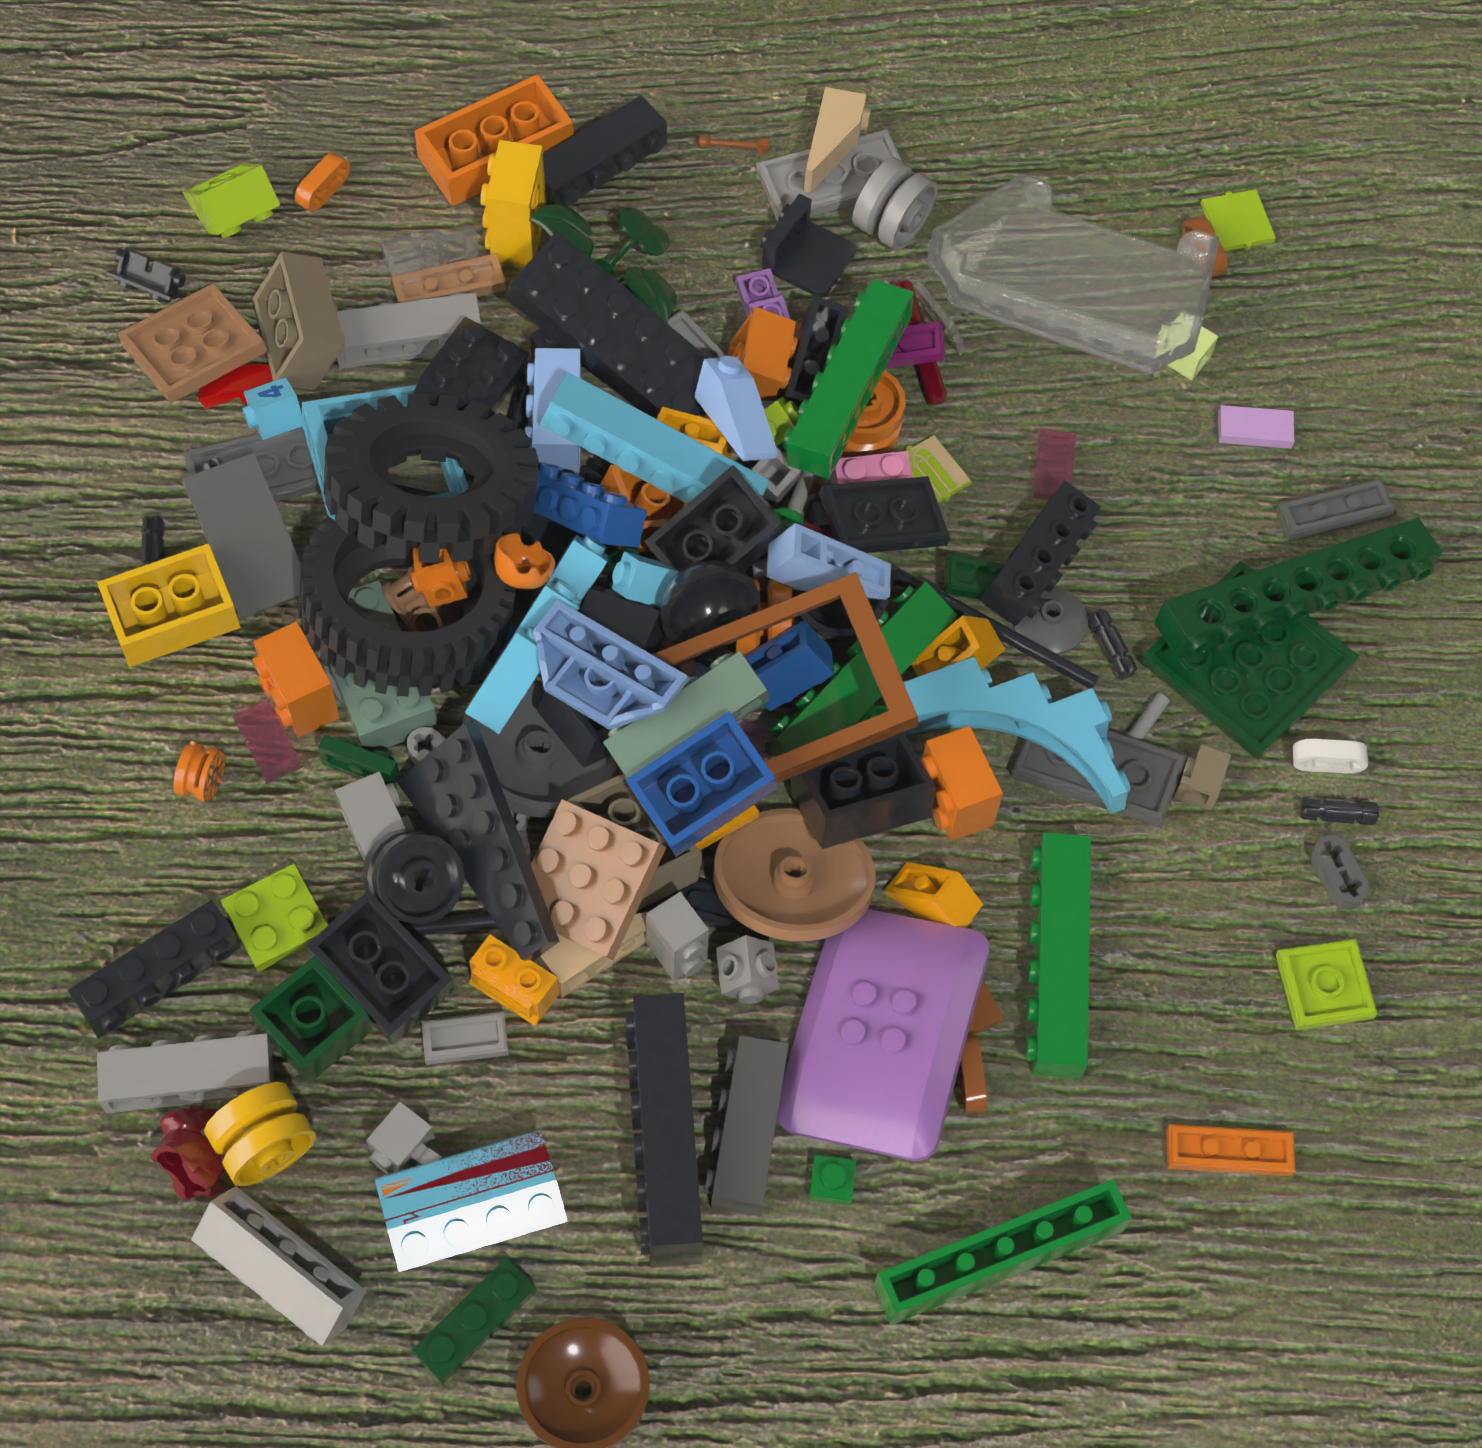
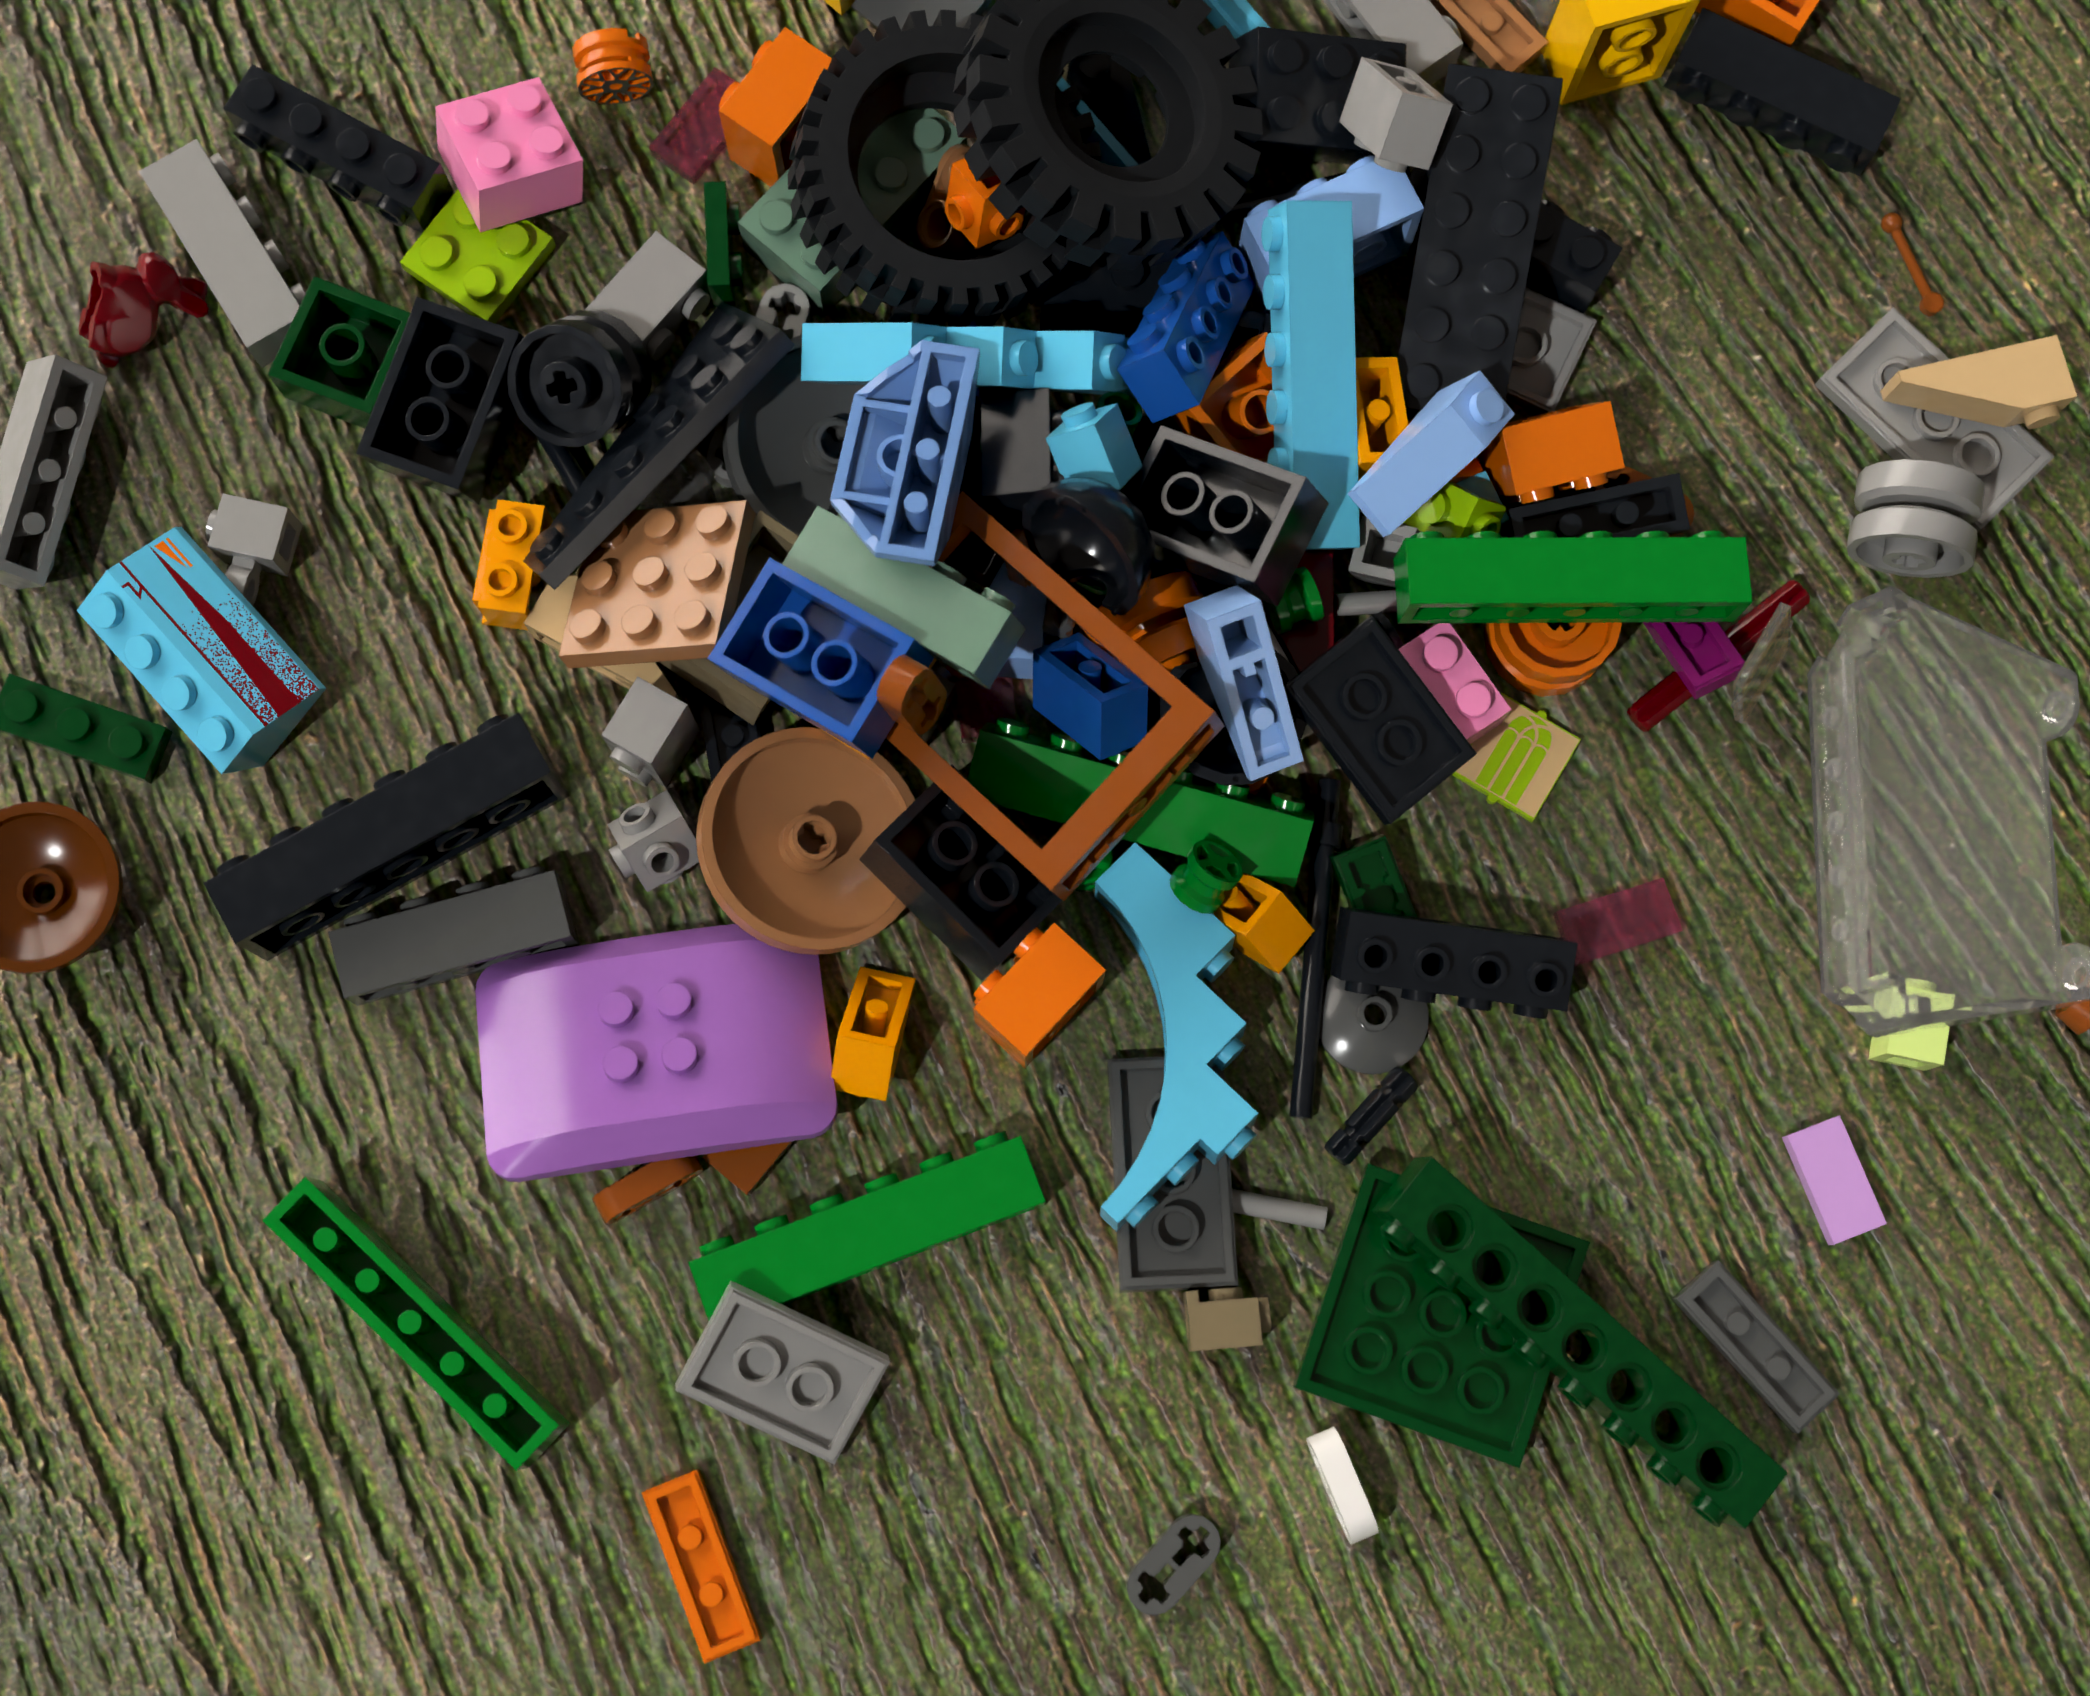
camera: 65 degrees right, 15 degrees up
(227, 857) = (509, 154): none -> bright pink brick
(260, 1133) = (174, 369): yellow wheel -> none
(464, 1038) = (424, 548): light grey tile -> none
(521, 330) = (1395, 115): none -> light grey brick
(522, 564) = (1037, 284): orange hair -> none
(646, 284) = (1572, 256): dark green plant -> none
(758, 734) = (911, 694): none -> dark orange beam
(760, 291) = (1667, 421): medium lavender slope -> none
(805, 251) = (1781, 436): black bracket -> none
(832, 1180) = (436, 1071): green plate -> none
(931, 654) = (1206, 876): none -> green wheel
(1131, 1039) = (782, 1372): none -> light grey tile
(1326, 984) = (998, 1607): lime tile -> none
(1339, 810) = (1267, 1529): black axle -> none

